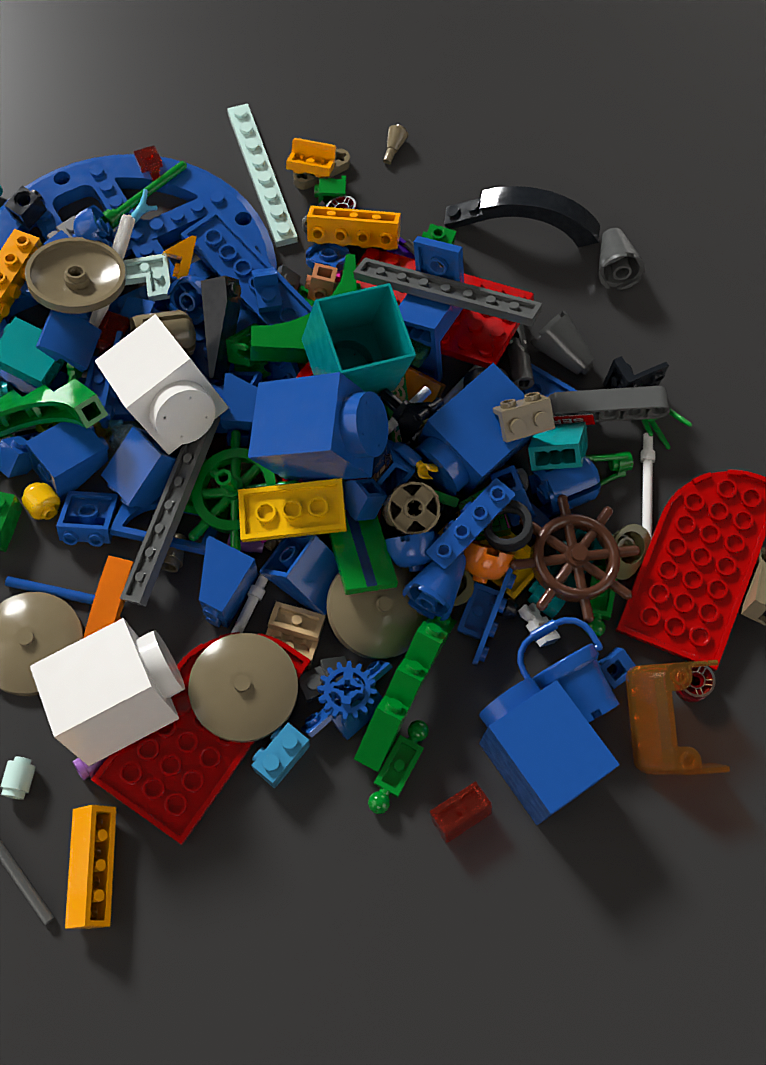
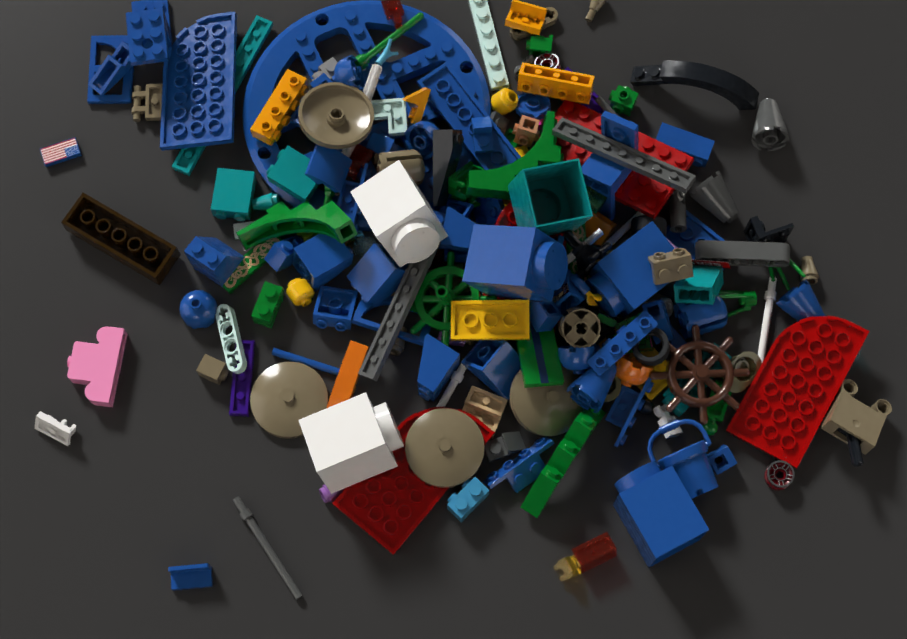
camera: 10 degrees right, 5 degrees up
(17, 778) = (279, 497): light aqua brick -> none
(26, 206) = (295, 54): black brick -> none
(91, 867) = (330, 563): light orange brick -> none
(293, 253) = (504, 101): none -> yellow head
(357, 692) = (511, 456): blue gear -> none
(398, 766) = (552, 515): green plate -> none
(428, 837) = (569, 568): none -> clear yellow tile
(526, 281) = (686, 142): none -> blue brick
(654, 720) = (741, 500): clear orange windscreen -> none
(688, 459) = (800, 302): none -> blue cone
(697, 429) = (809, 269): none -> dark tan cone

